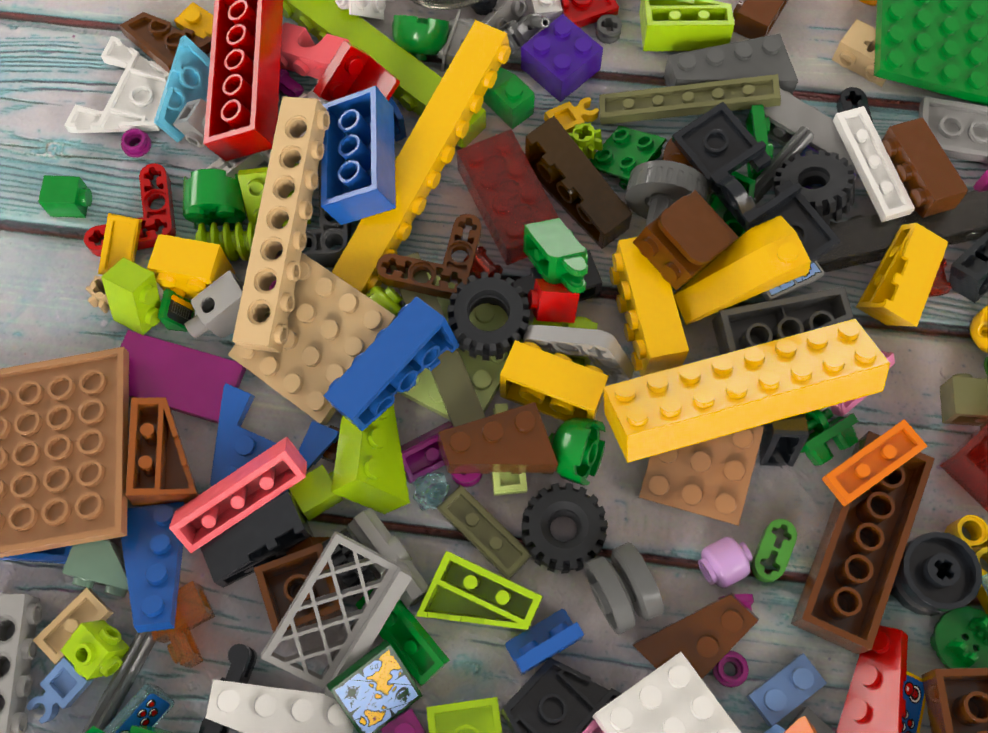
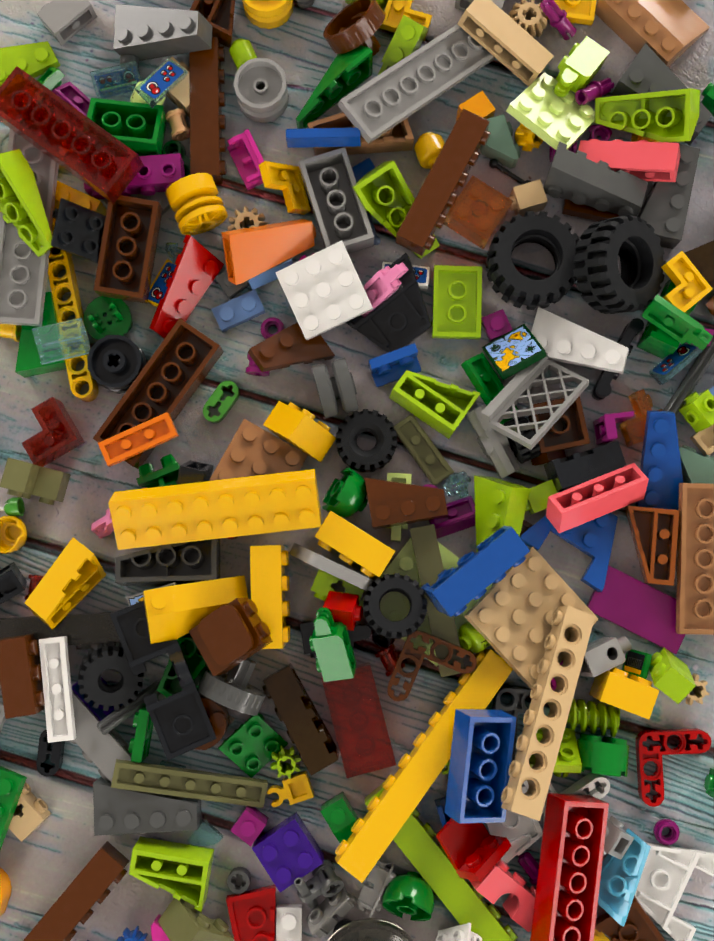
camera: 170 degrees left, 15 degrees up
(119, 240) = (681, 729): yellow tile -> none
(233, 601) = (605, 426): none -> magenta panel
(610, 74) = (249, 824): none -> magenta brick
(653, 64) = (205, 835): none -> clear light blue tile
(658, 521) = (300, 429): none -> yellow brick
(725, 562) = (258, 397): lavender head -> none

